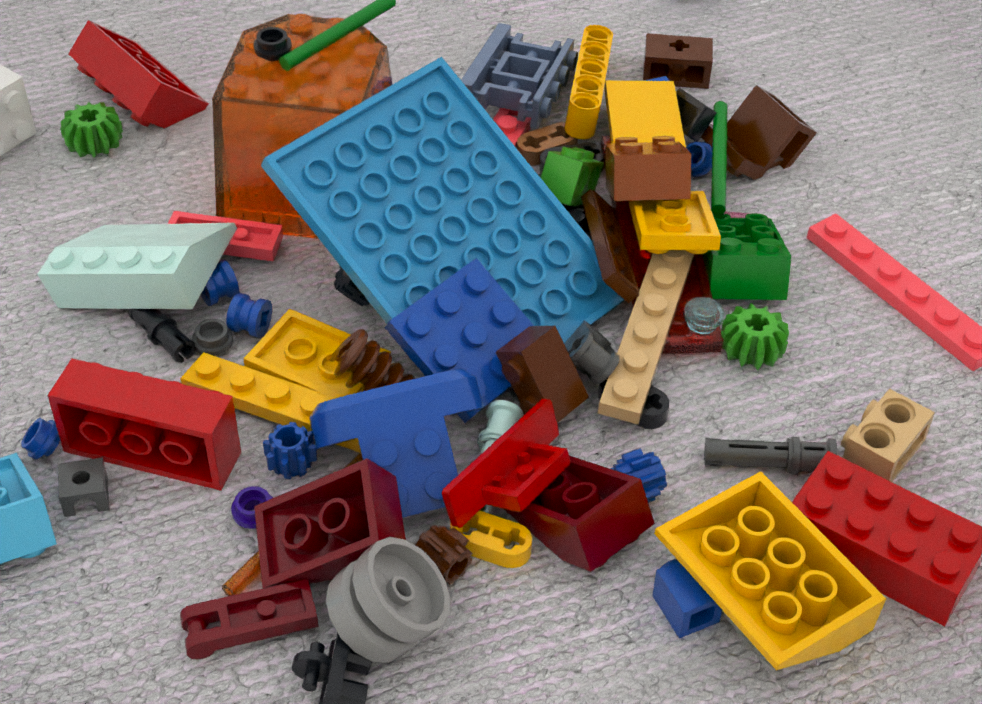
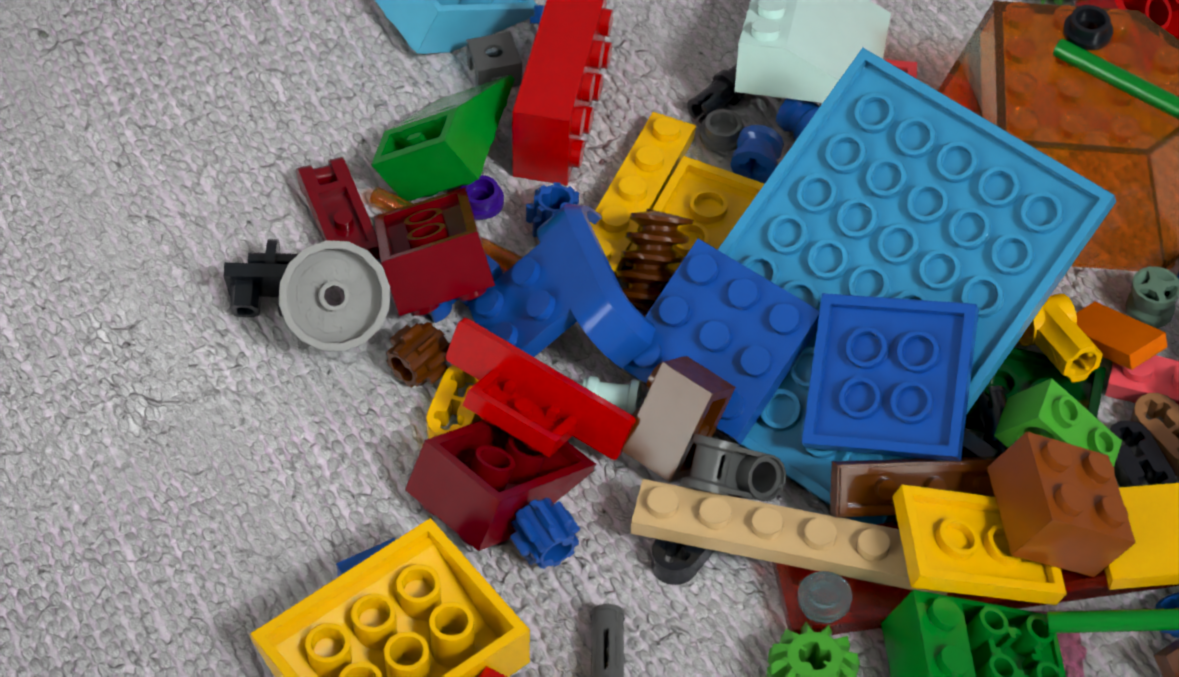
camera: 85 degrees right, 5 degrees up
(187, 512) = (443, 141): none -> green slope
(536, 233) = (891, 376): none -> blue plate

